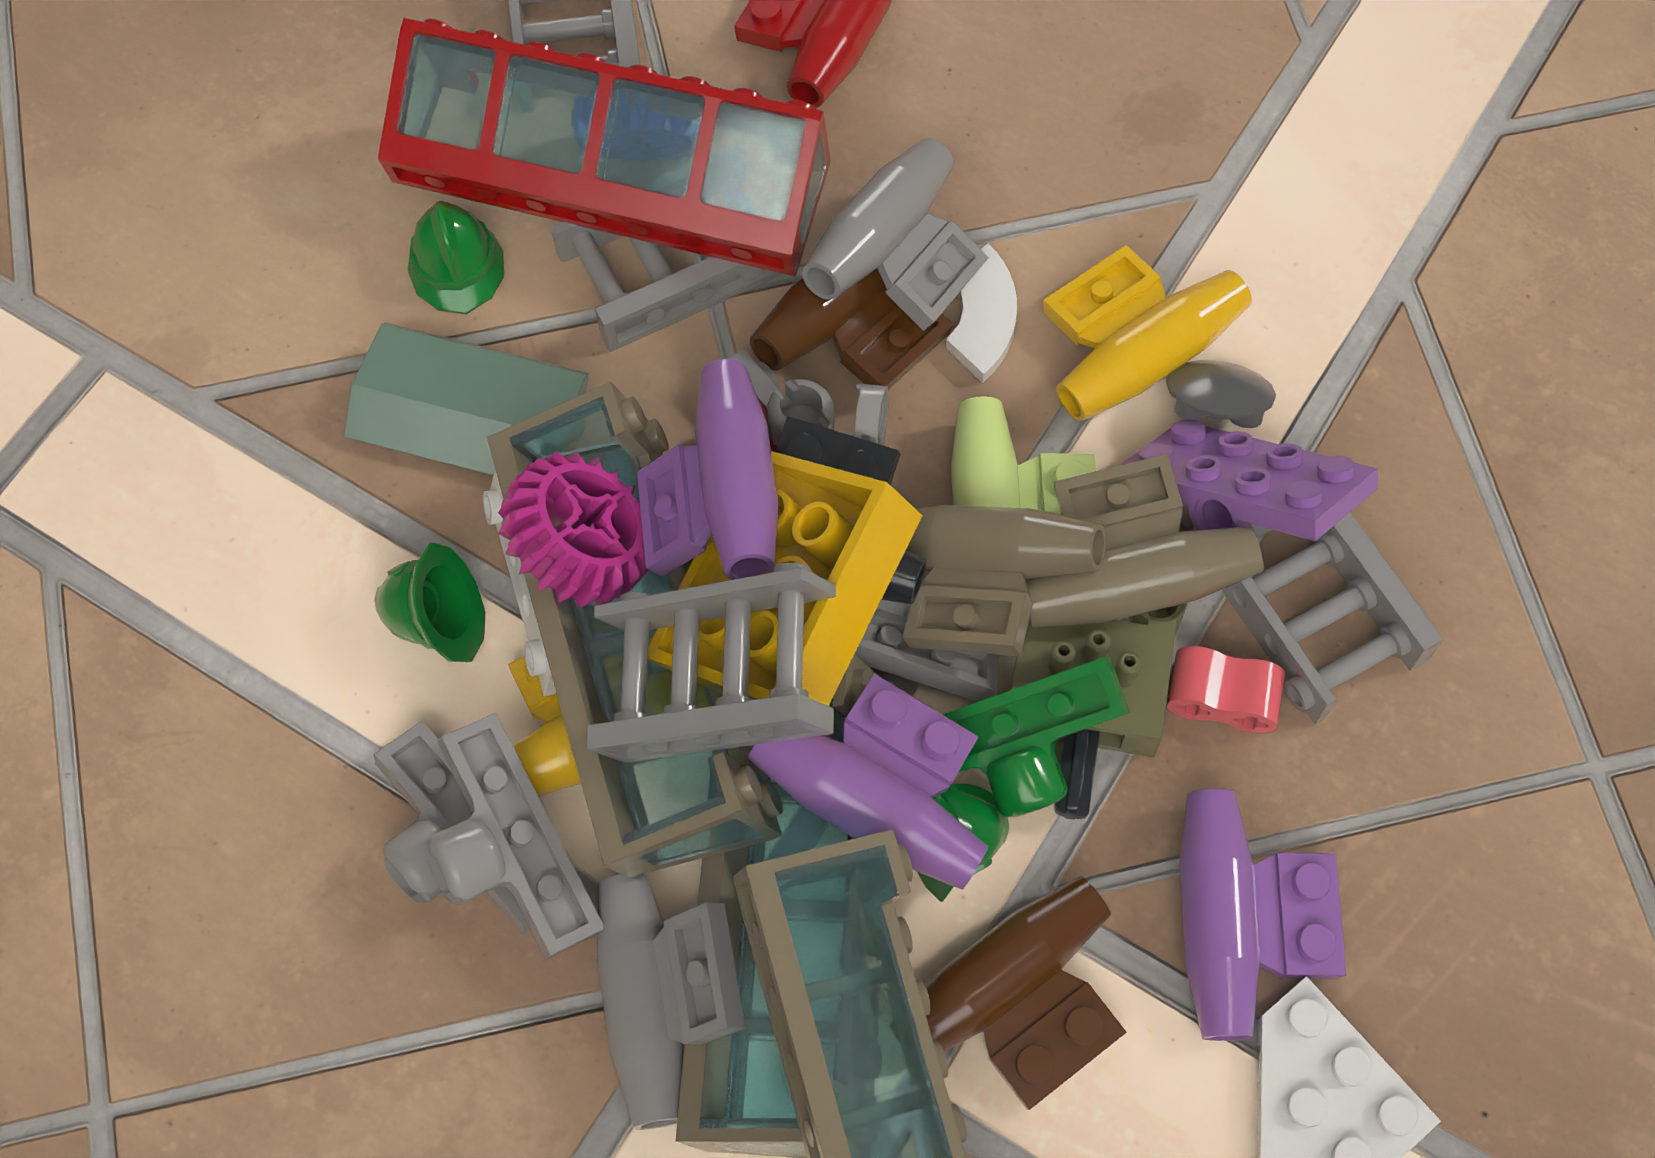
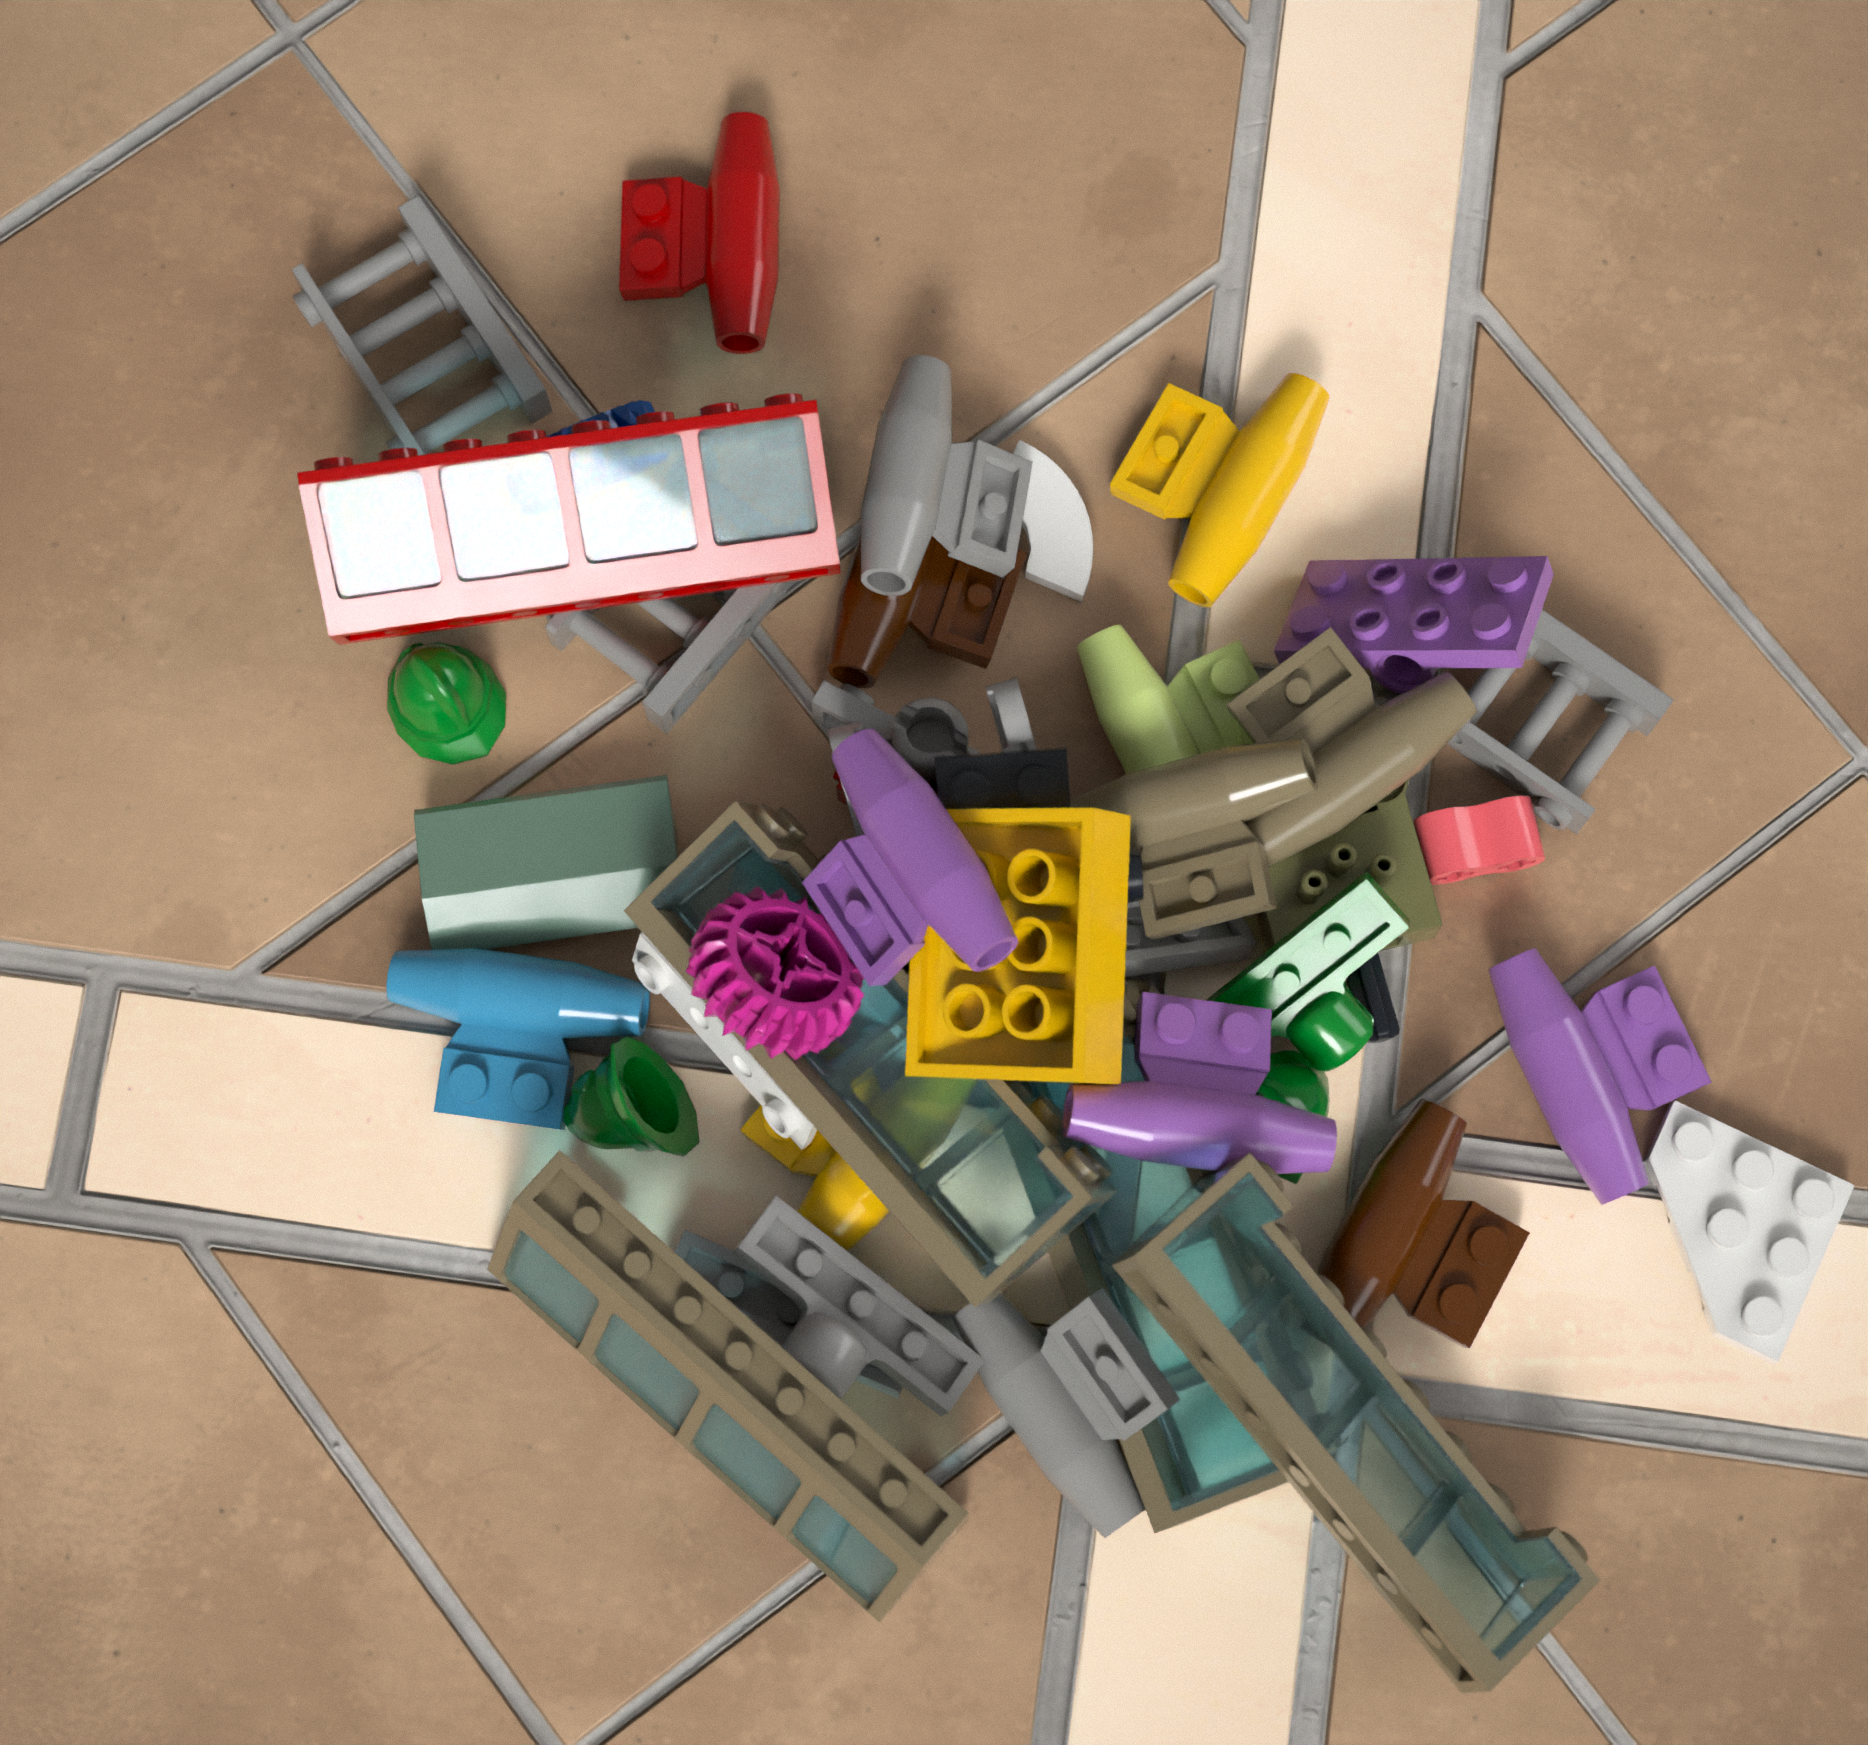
camera: 25 degrees left, 10 degrees up
(374, 510) = (514, 1022): none -> dark azure plate
(381, 859) = (723, 1387): none -> dark tan window
(736, 717) = (1047, 1107): light grey fence -> none
(1220, 392) = (1340, 514): dark grey dish -> none

